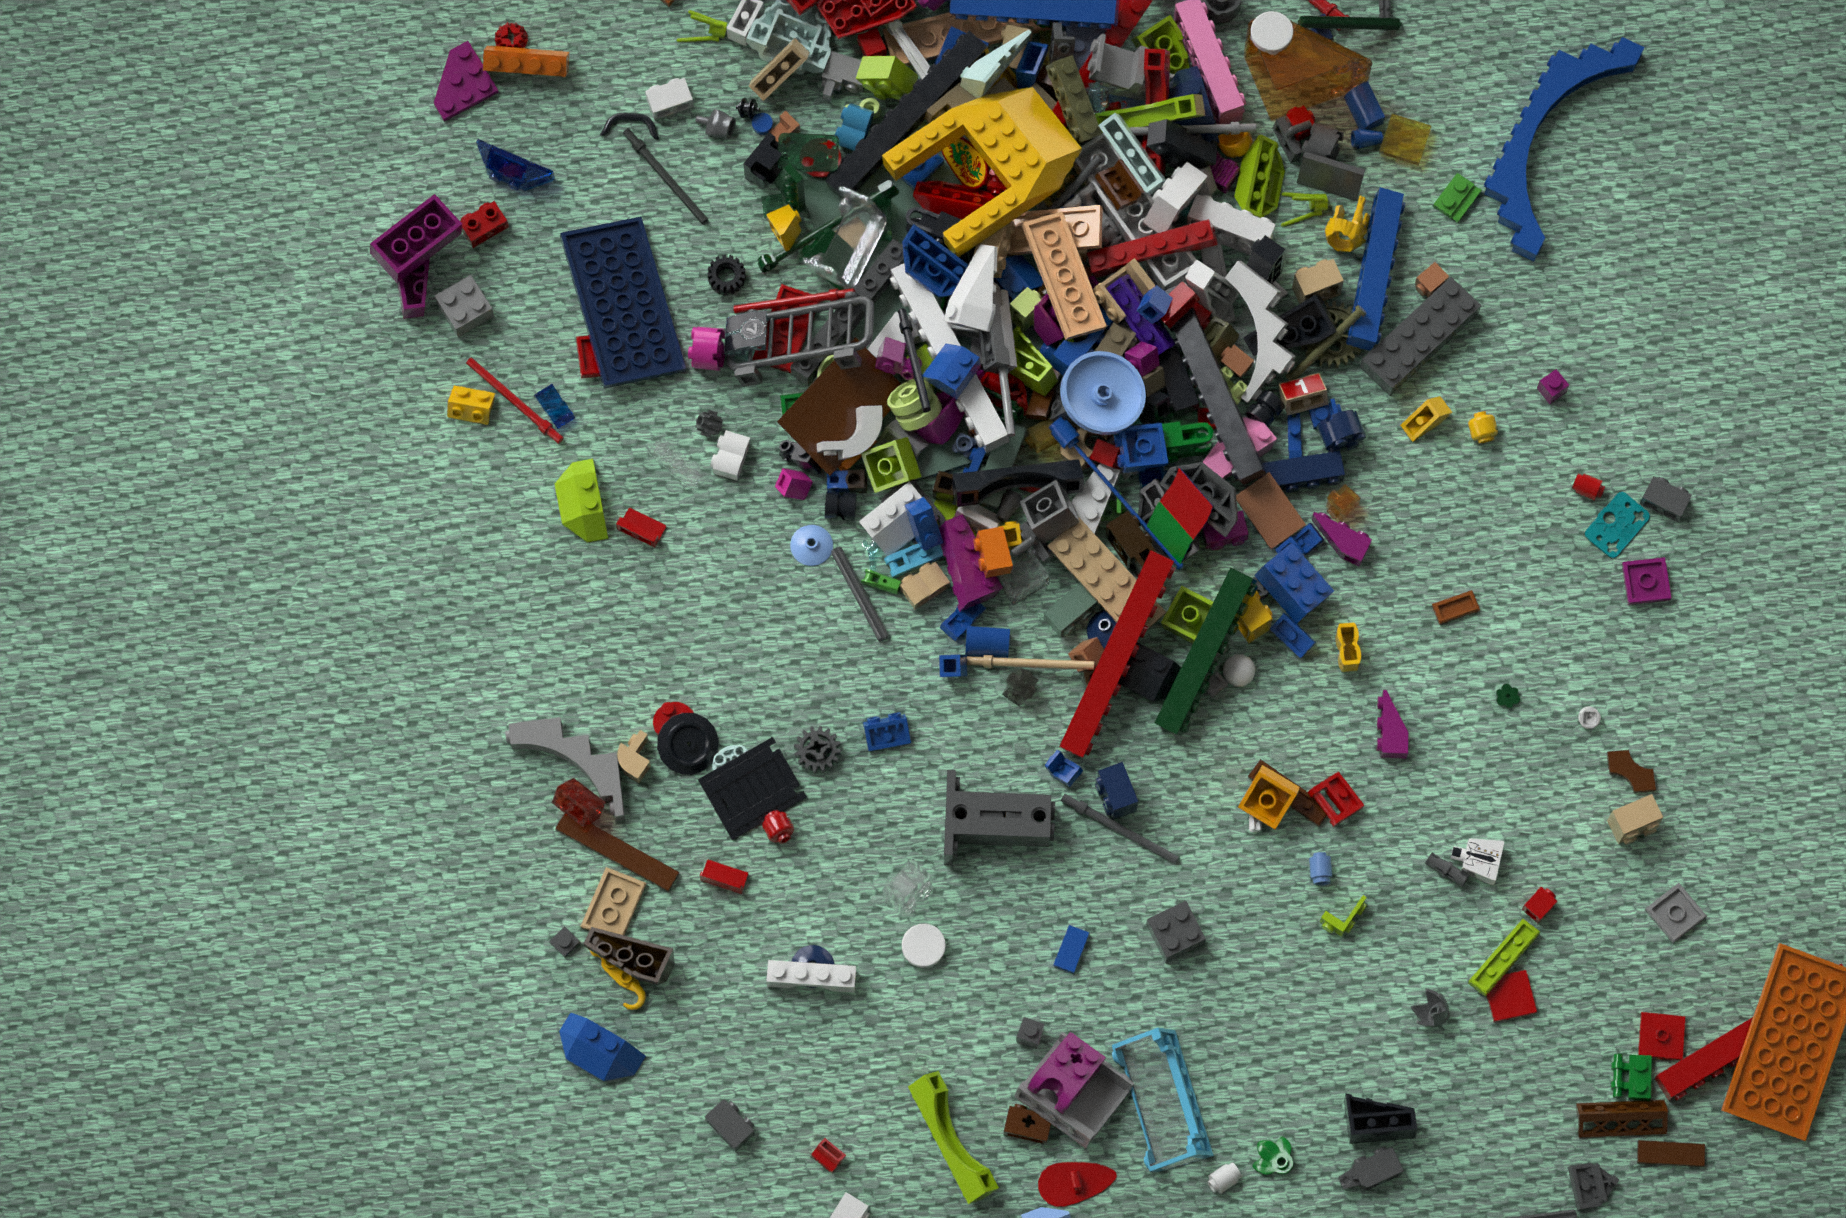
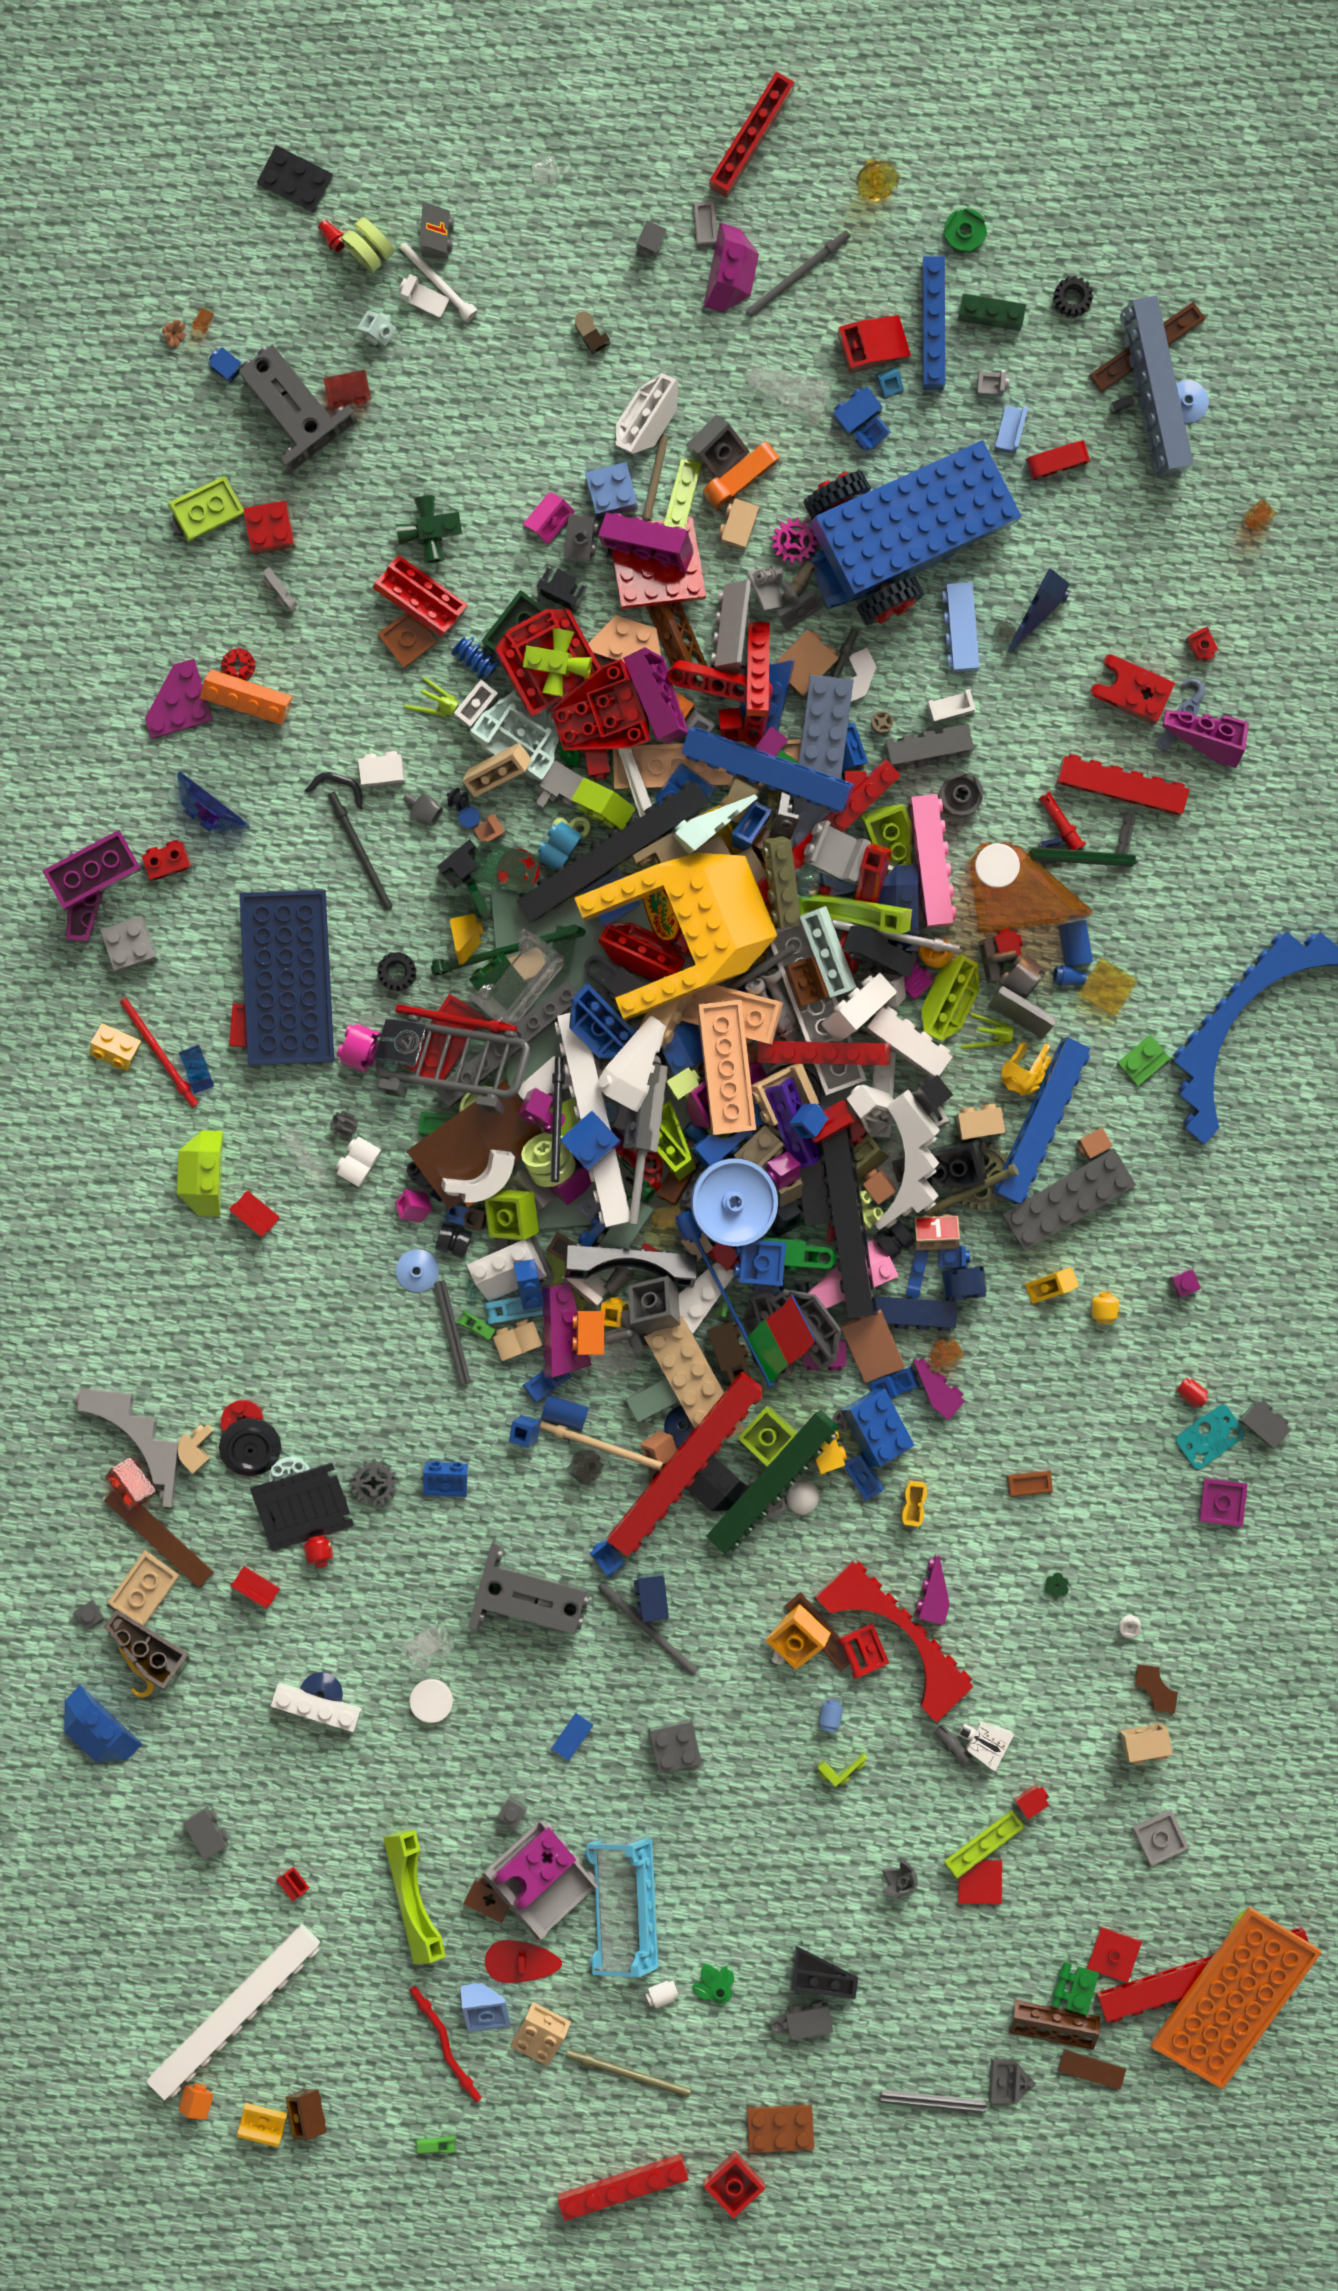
camera: 10 degrees right, 15 degrees up
(844, 46) = (570, 757): none -> green plant
(1315, 744) = (943, 1681): none -> red arch

